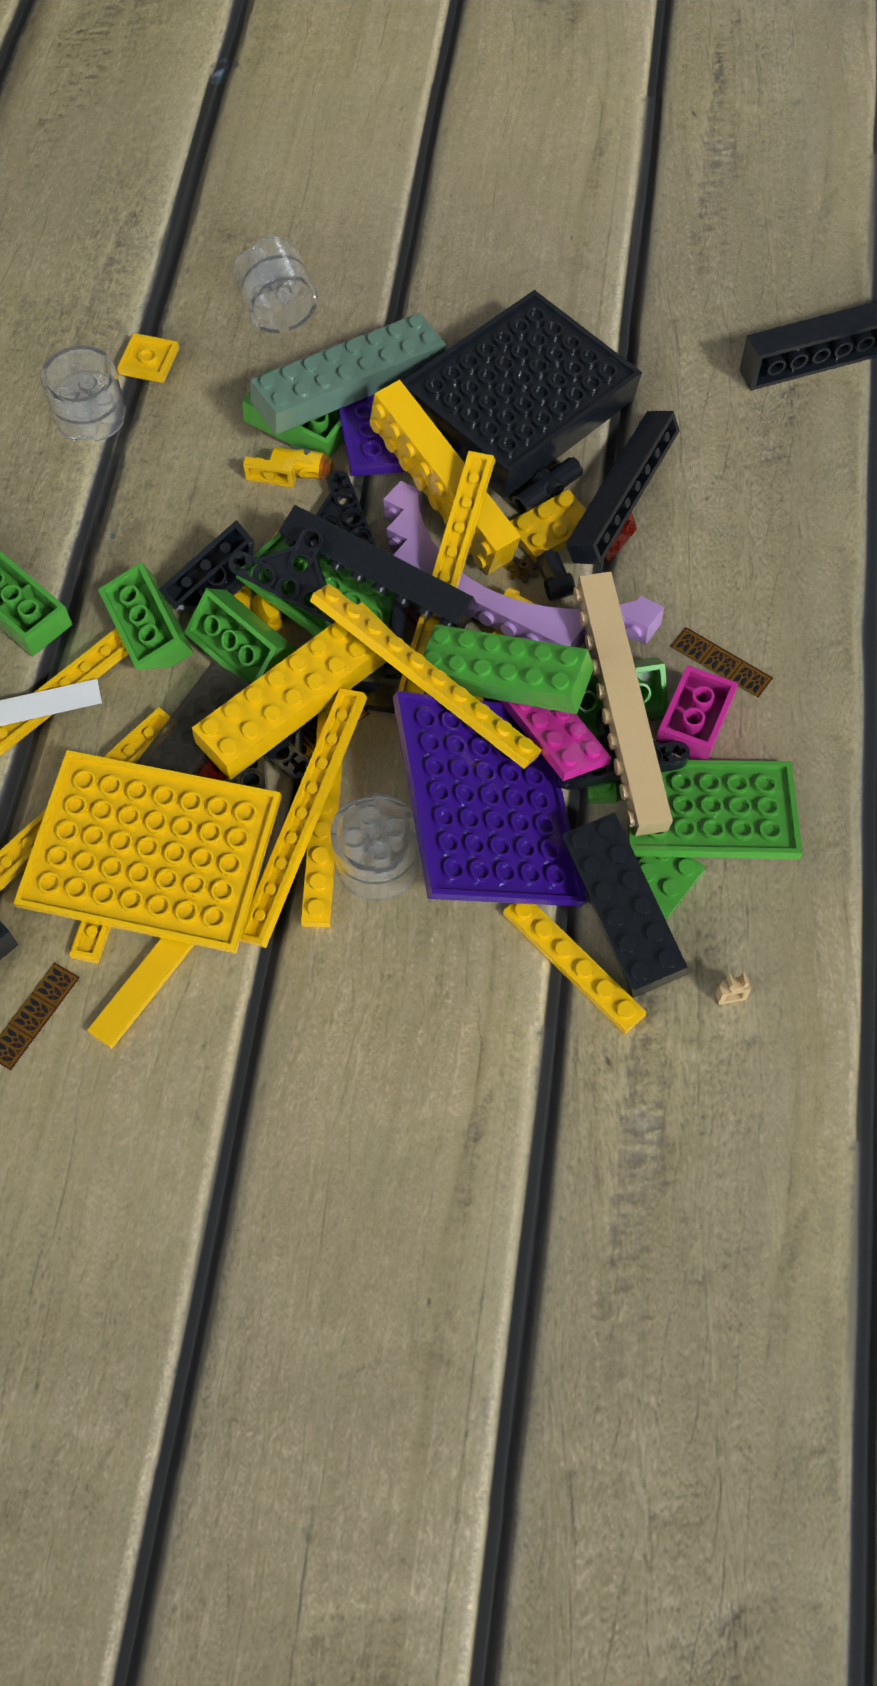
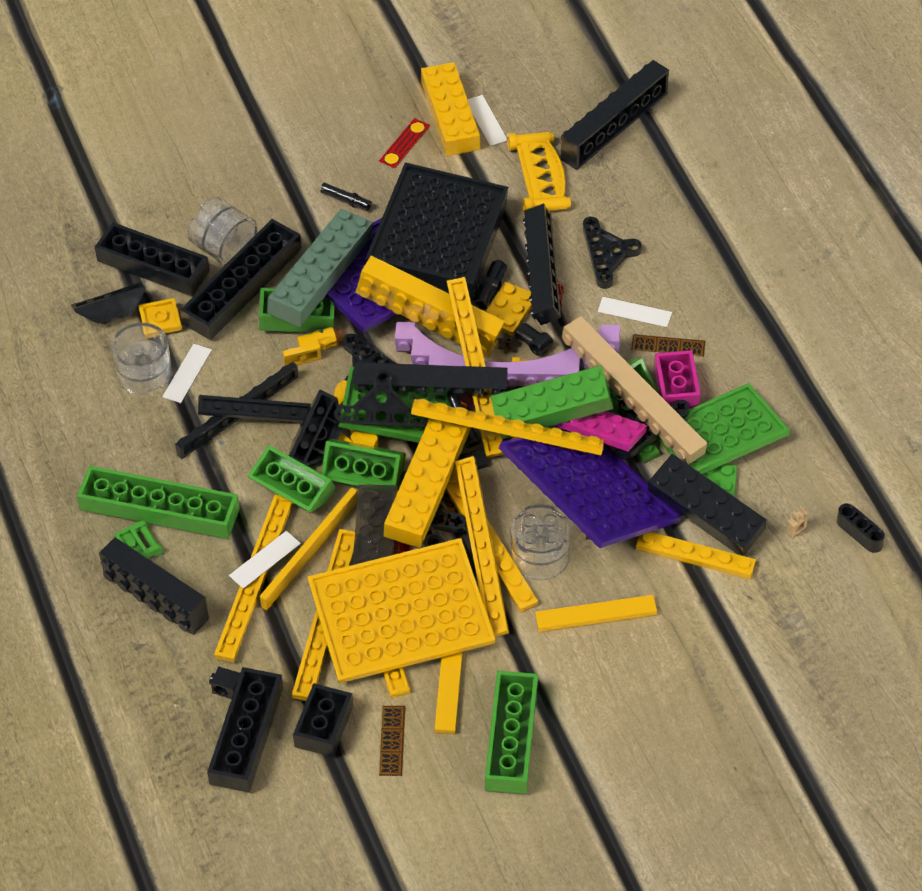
camera: 30 degrees left, 10 degrees down
(99, 319) = (110, 305): none -> black wedge
(103, 716) = (308, 549): none -> yellow tile
(134, 436) = (186, 373): none -> white sticker
(150, 504) = (217, 424): none -> black plate
(156, 506) = (252, 408): none -> black tile
(168, 1090) = (511, 732): none -> bright green brick
(185, 286) = (152, 259): none -> black brick
(231, 360) = (240, 279): none -> black brick
(393, 978) = (595, 613): none -> yellow tile
(457, 313) = (352, 199): none -> black pin
(566, 273) = (404, 143): none -> sticker
(642, 254) = (450, 109): none -> yellow brick
(680, 286) = (486, 120): none -> white sticker
(702, 333) = (525, 146): none -> yellow piece
(707, 599) = (634, 311): none -> white sticker
(717, 516) = (605, 244): none -> black beam
(818, 1054) = (860, 528): none -> black beam

